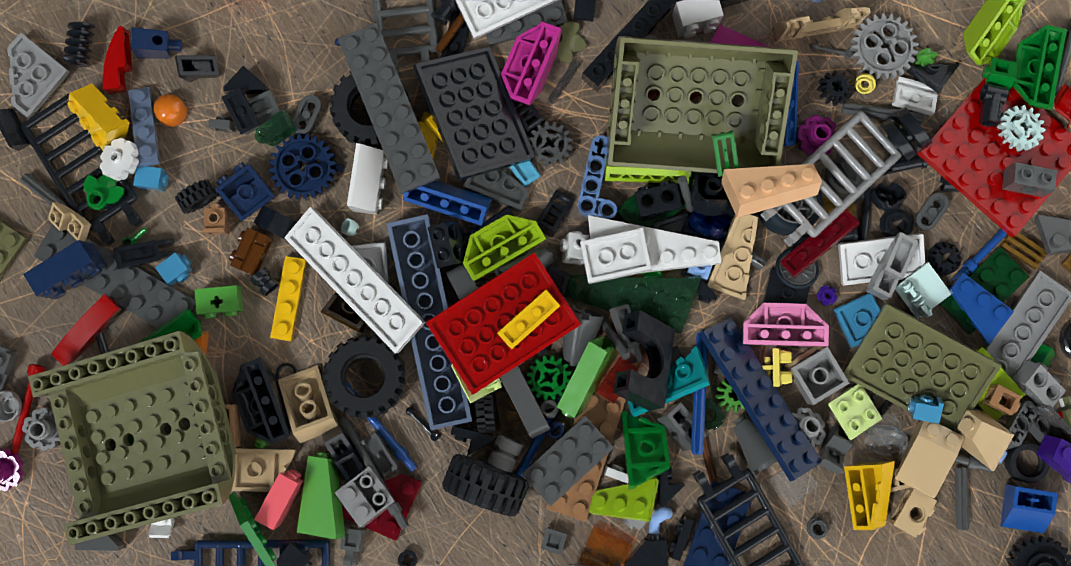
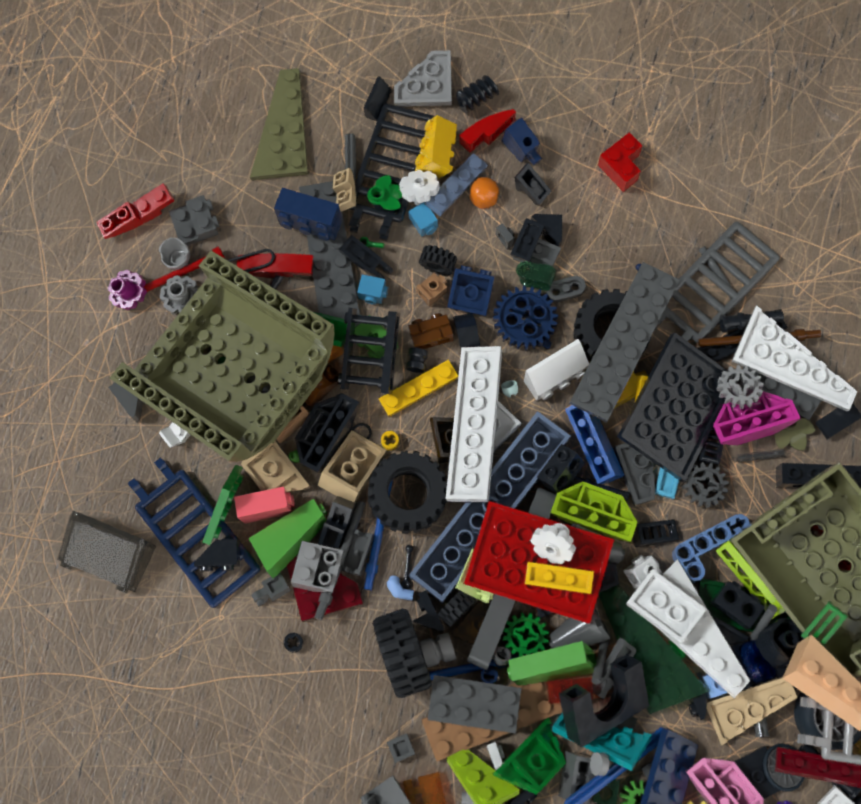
camera: 55 degrees right, 10 degrees down
(59, 343) = (254, 253): none -> black piece
(222, 365) = (326, 385): none -> reddish brown slope
(231, 293) = (386, 362): none -> black fence
(317, 359) = (388, 434): none -> yellow bush
(434, 447) = (397, 590): none -> light blue arm
(498, 60) = (737, 388): none -> light grey gear
(499, 301) = (553, 543): none -> white plant
(686, 403) = (599, 764): none -> light grey tile

